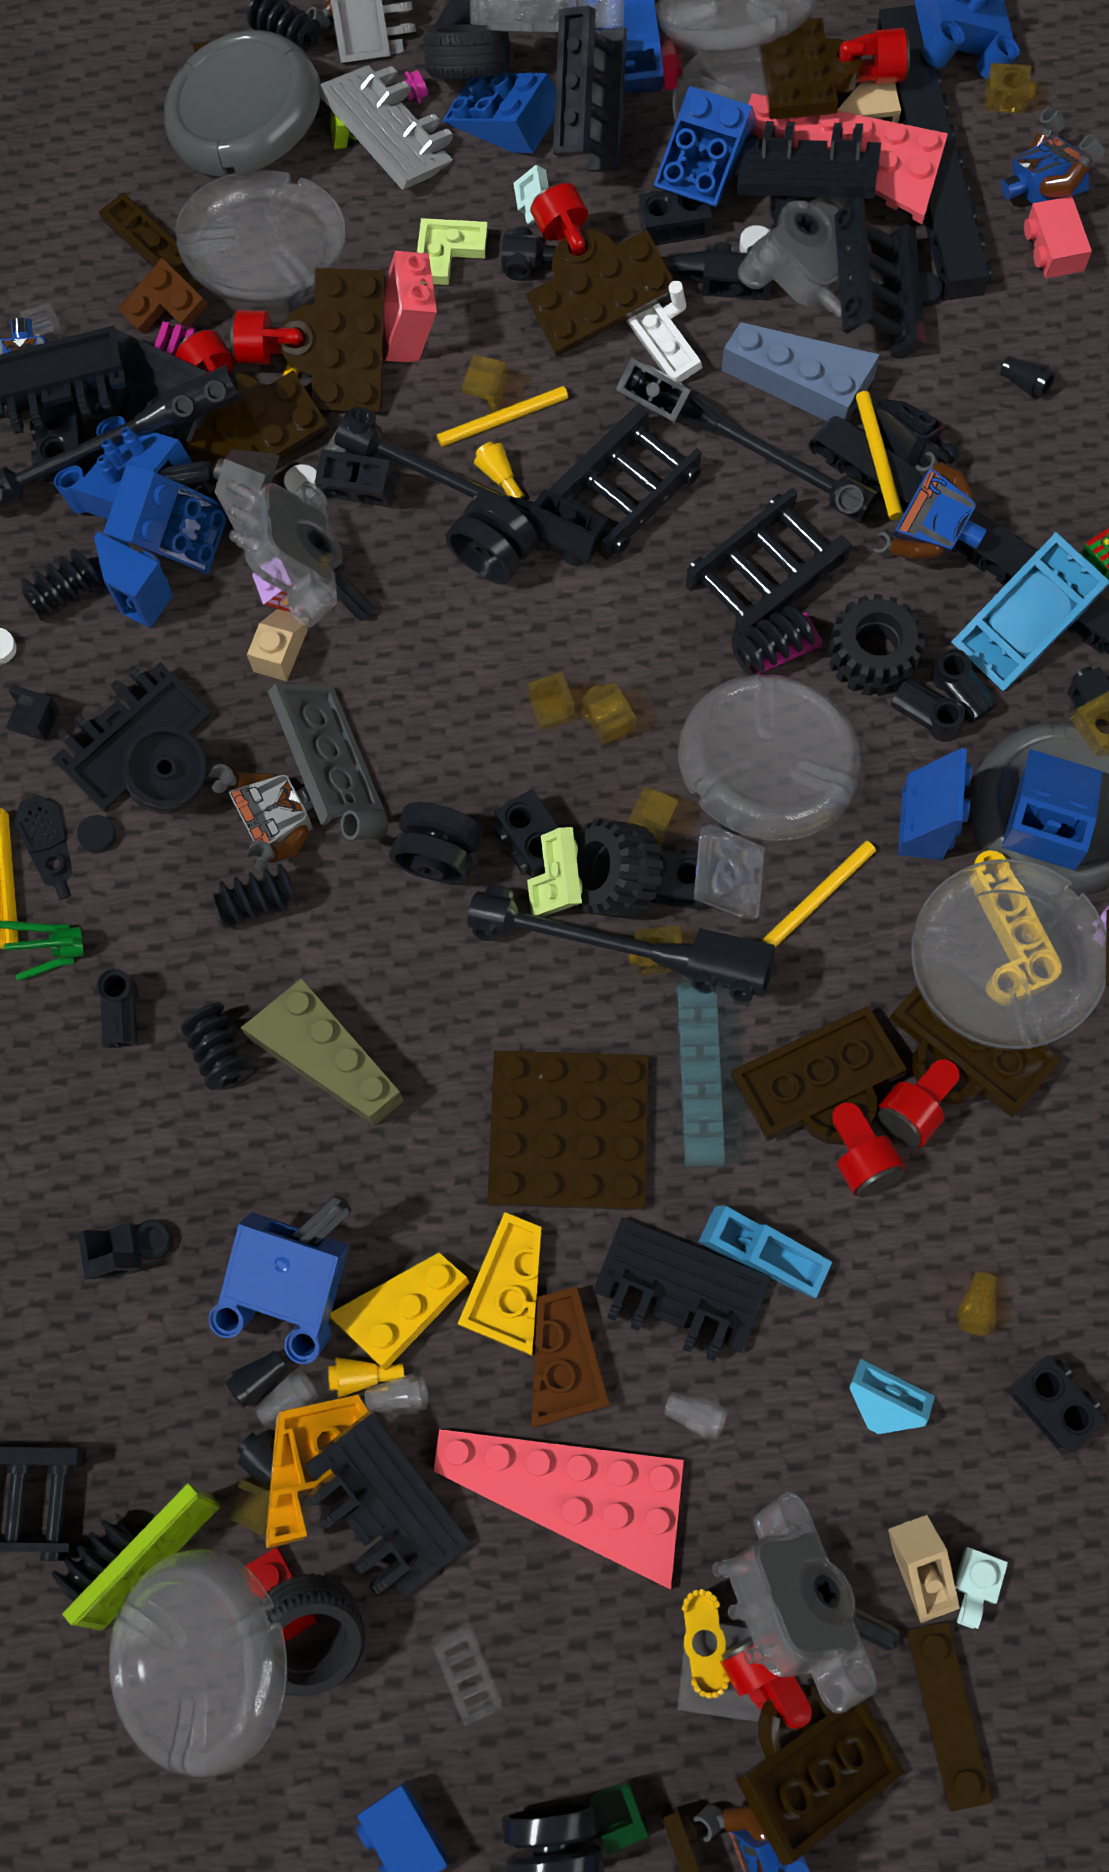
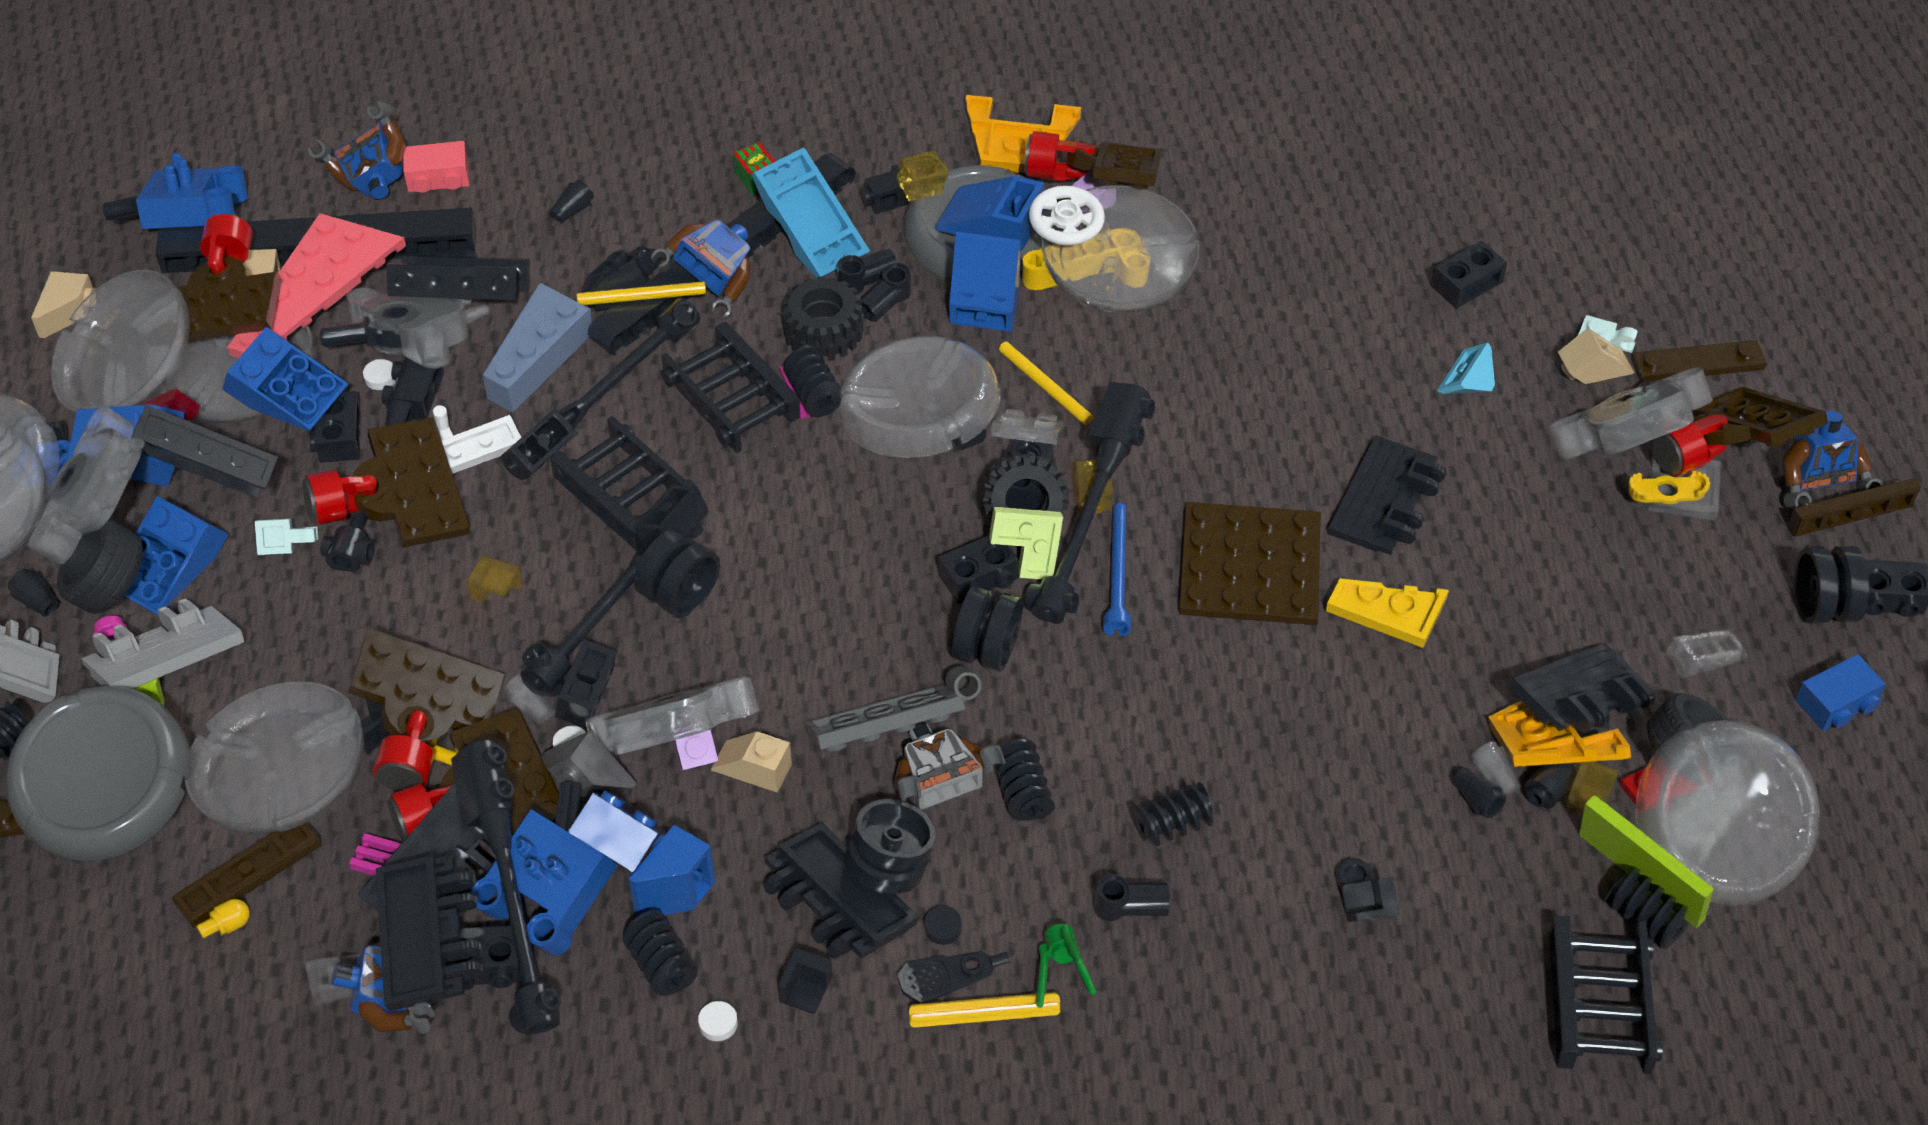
camera: 90 degrees left, 20 degrees down
(107, 239) = (226, 918): none -> yellow cylinder
(162, 291) = (315, 853): reddish brown plate -> none
(286, 1276) = (1394, 746): blue piece -> none
(316, 1045) = (1179, 729): olive wedge -> none
(353, 1375) = (1472, 722): yellow cone -> none
(398, 1396) = (1487, 686): clear cone -> none
(400, 1309) = (1413, 684): yellow wing -> none
(408, 306) = (406, 595): coral window -> none
(450, 239) = (317, 615): yellowish green plate -> none
(476, 984) = (1117, 616): none -> blue piece
(494, 463) = (587, 580): yellow cone -> none
(502, 416) = (528, 578): yellow bar -> none
(551, 701) = (846, 546): clear yellow panel -> none
(565, 1365) = (1462, 569): reddish brown wing -> none
(596, 1497) = (1557, 569): coral wing -> none
(608, 712) = (862, 507): clear yellow brick -> none
(618, 1817) = (1789, 548): dark green panel -> none
(654, 812) = (965, 481): clear yellow panel -> none
(697, 1414) = (1489, 488): clear cone -> none
(700, 1077) = (1204, 465): clear light blue beam -> none
(765, 1251) = (1353, 438): dark azure slope -> none
(810, 168) = (334, 305): black hinge -> none
(829, 1089) = (1219, 387): dark brown plate -> none
(954, 1073) = (1205, 306): dark brown plate -> none
(978, 1305) = (1395, 312): clear yellow cone -> none
(1008, 88) = (266, 183): clear yellow brick -> none
(1056, 859) = (1066, 215): none -> white plate

